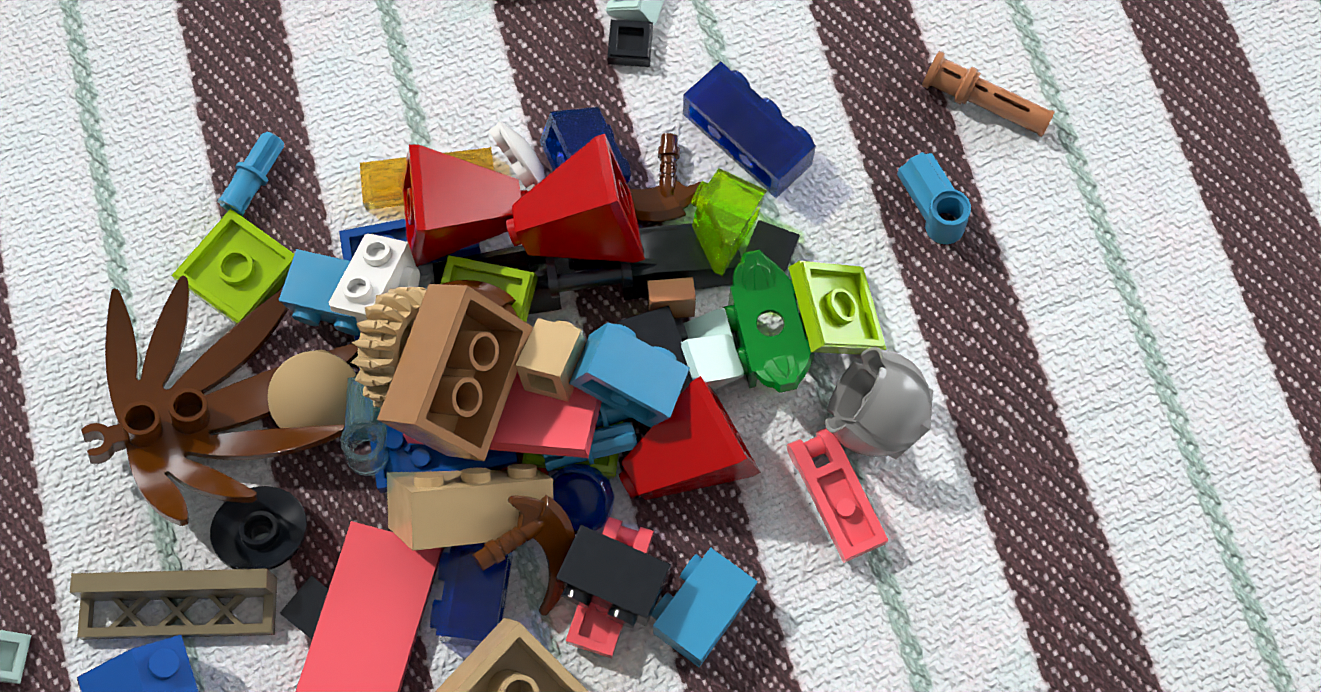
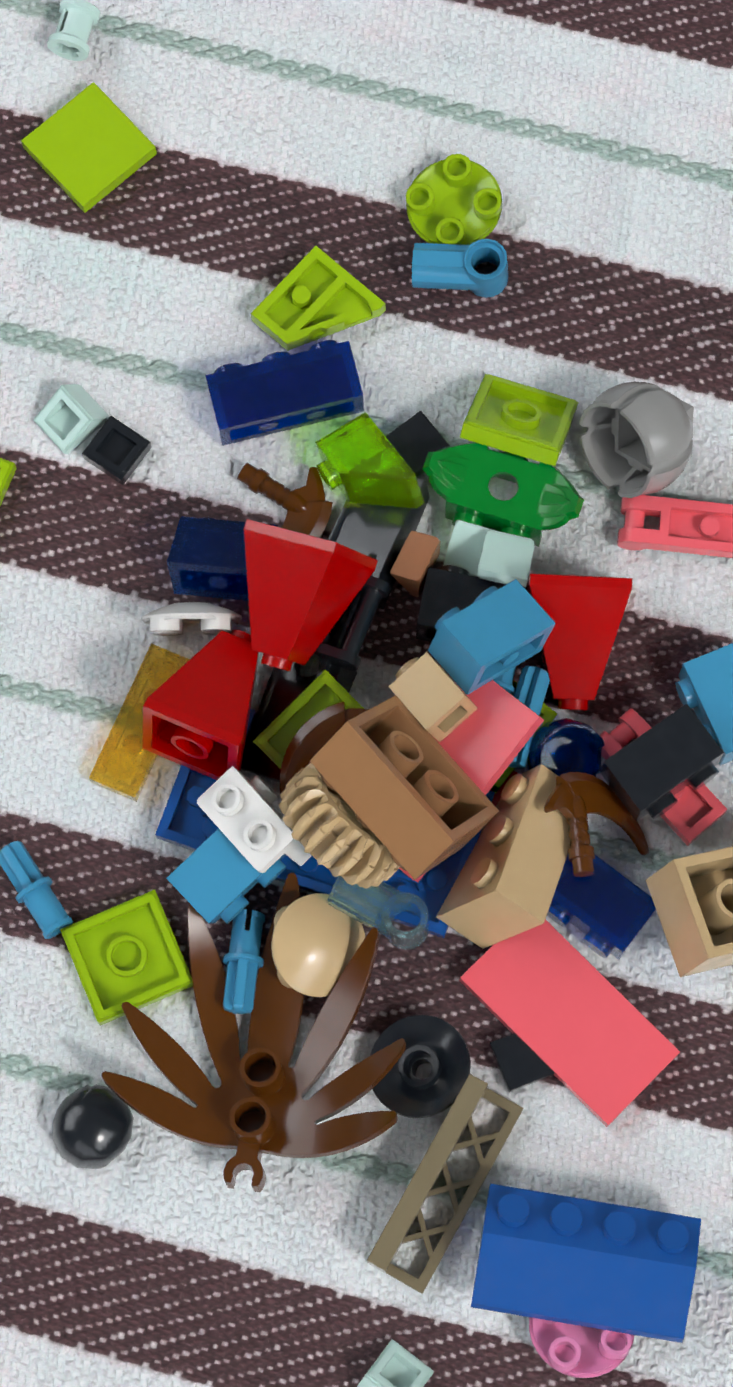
camera: 55 degrees left, 5 degrees up
(82, 315) = (92, 1127): none -> black hair
(273, 351) = (243, 963): none -> dark azure axle
(836, 111) = (315, 302): none -> lime wing
(968, 86) = (365, 167): nougat pin -> none
(987, 165) = (454, 202): none -> lime dish

